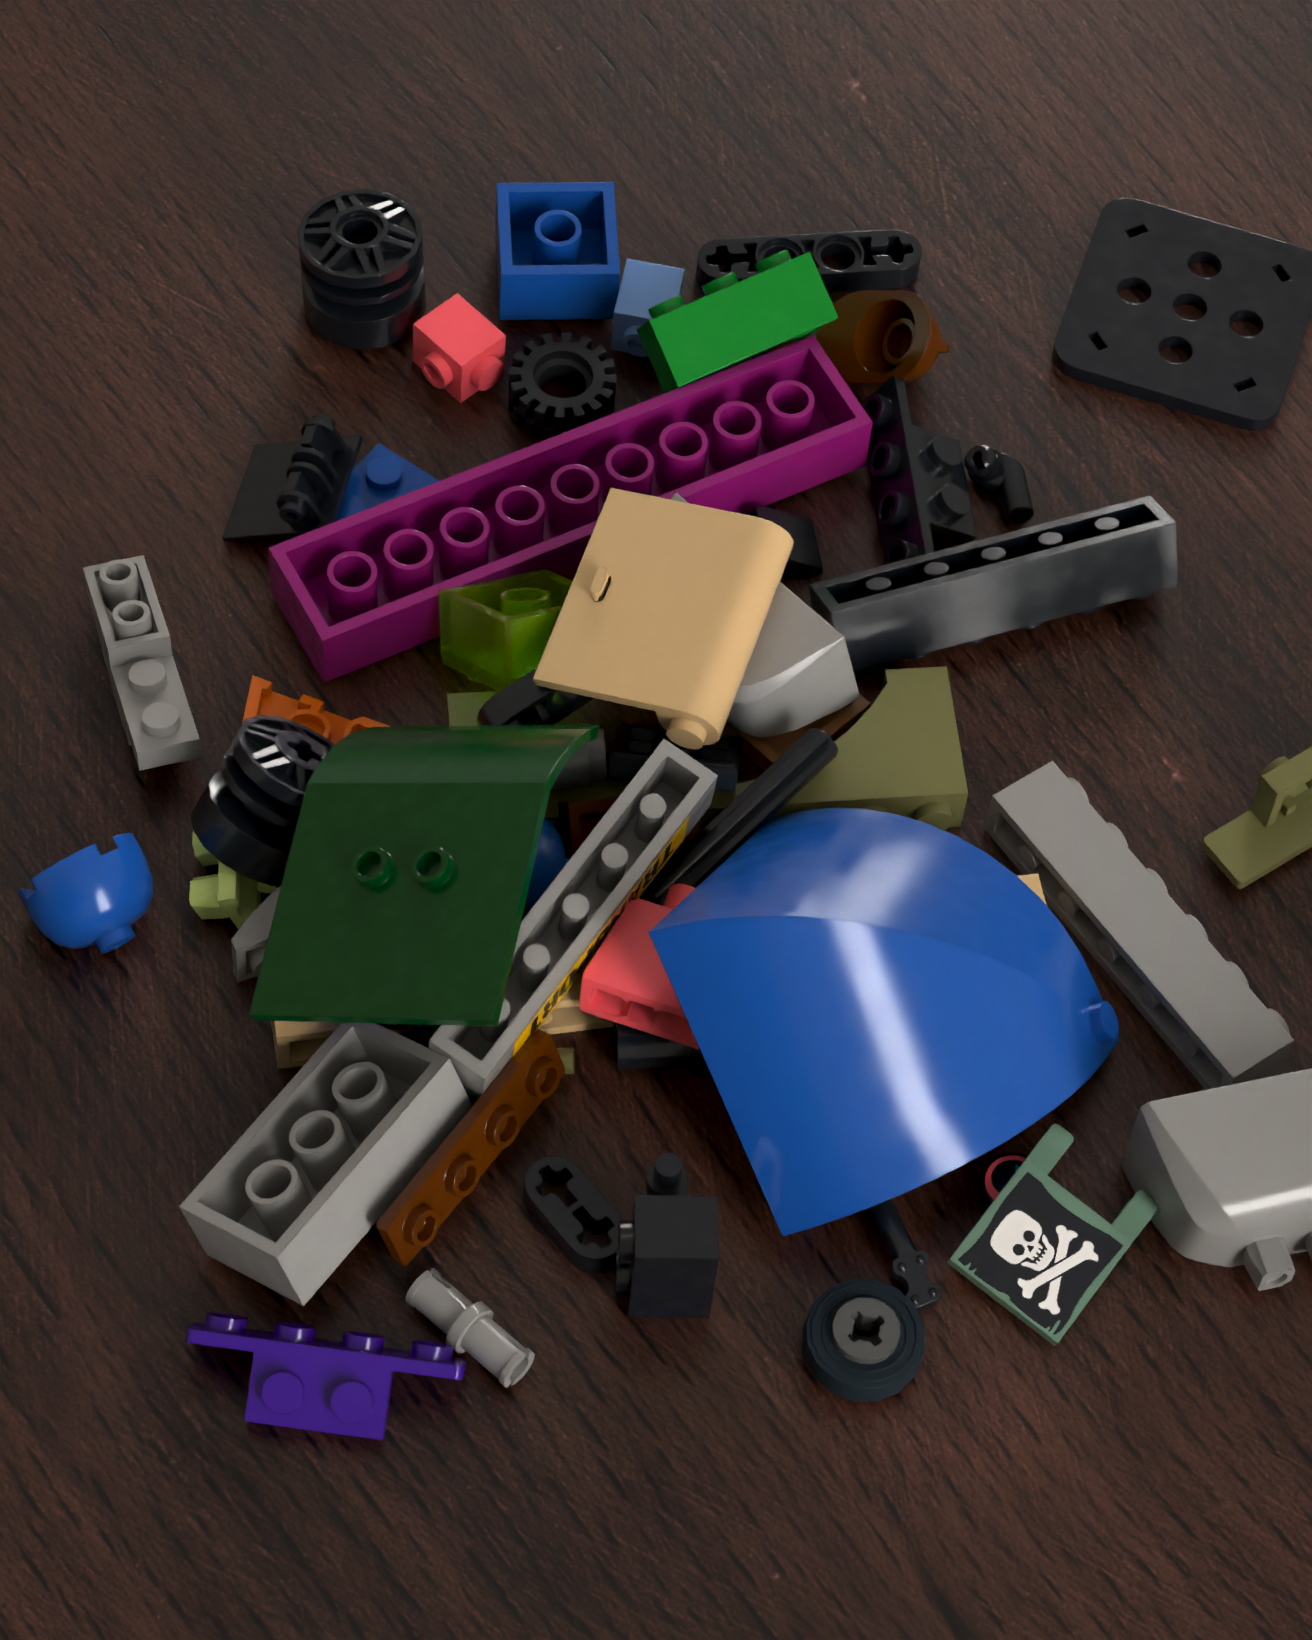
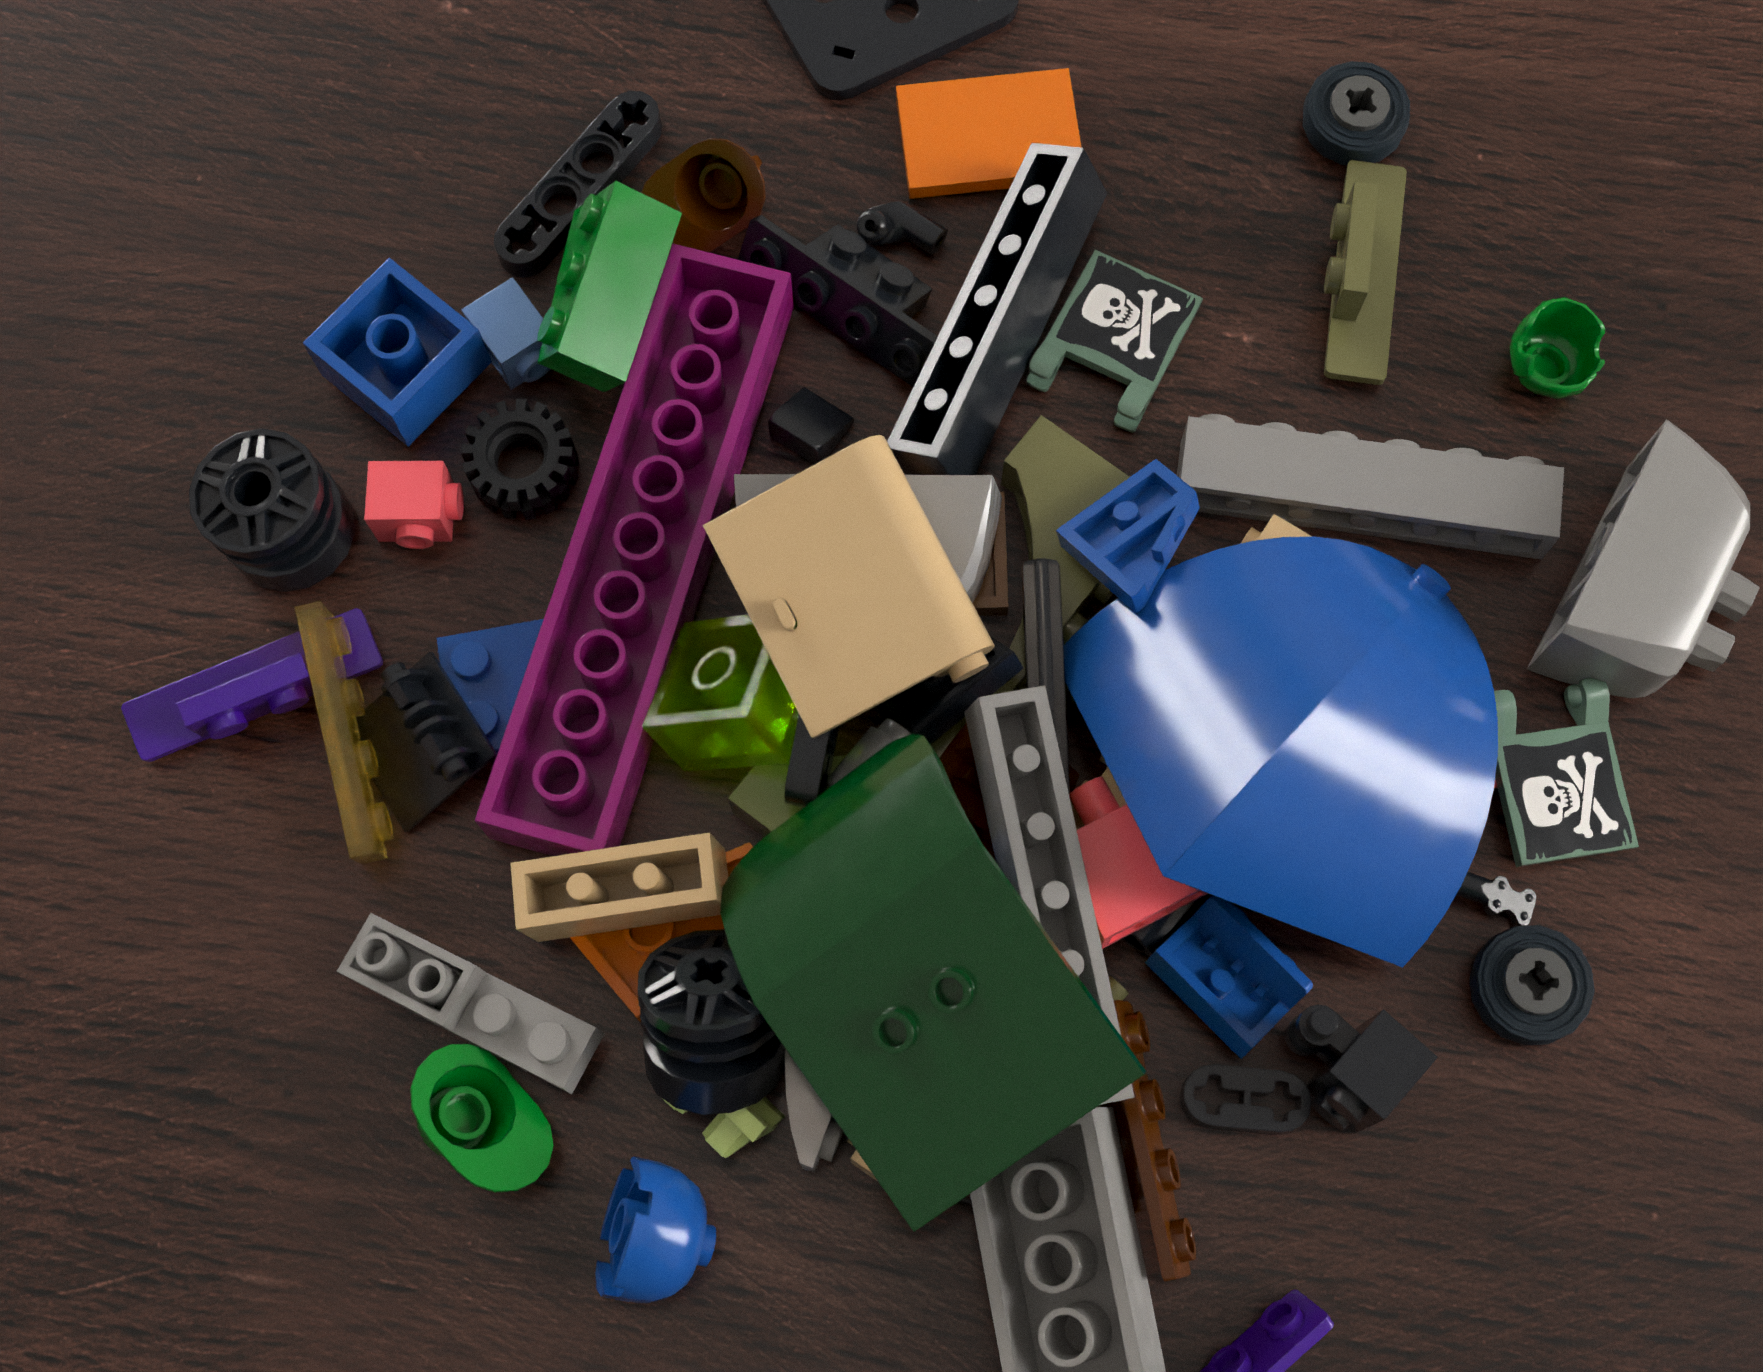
camera: 40 degrees left, 15 degrees up
(68, 724) = (480, 1119): none -> green piece
(229, 364) = (237, 691): none -> dark purple bracket
(240, 448) = (349, 758): none -> clear yellow plate
(309, 668) = (619, 887): none -> tan brick
(470, 1327) = (1280, 1267): light grey pin -> none
(651, 1113) = (1229, 974): none -> blue bracket
(914, 778) = (1132, 532): none -> blue wing
(1085, 683) = (1120, 327): none -> flag
(1125, 456) = (979, 129): none -> orange tile

